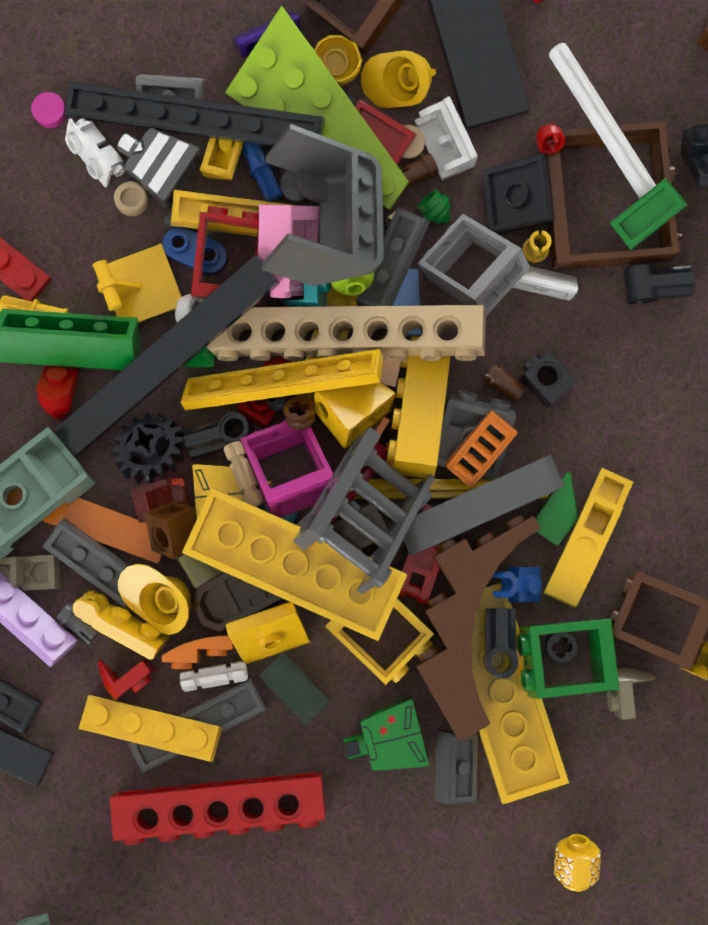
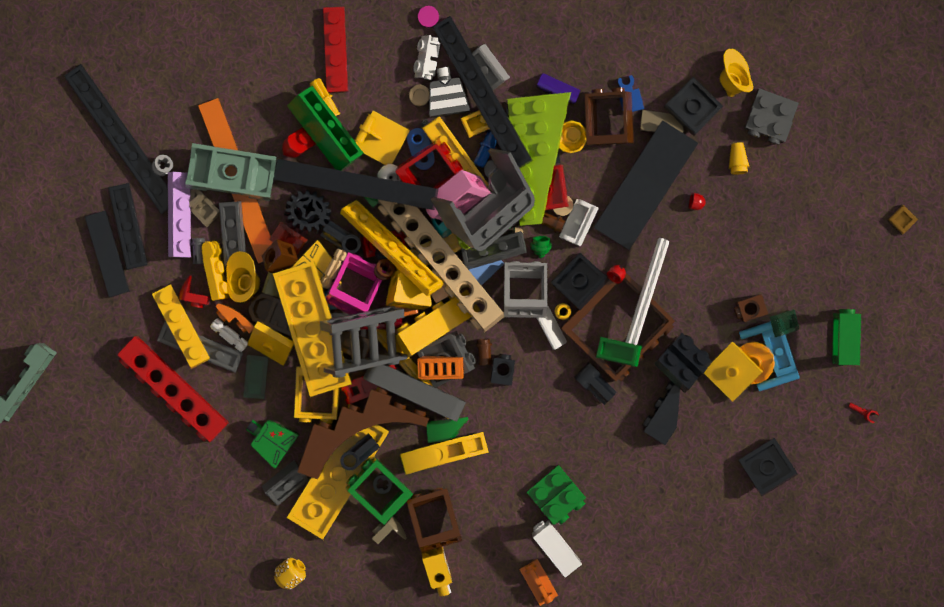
camera: 50 degrees right, 5 degrees up
(396, 79) = (587, 174): yellow piece -> none
(519, 584) = (394, 440): blue plate -> none

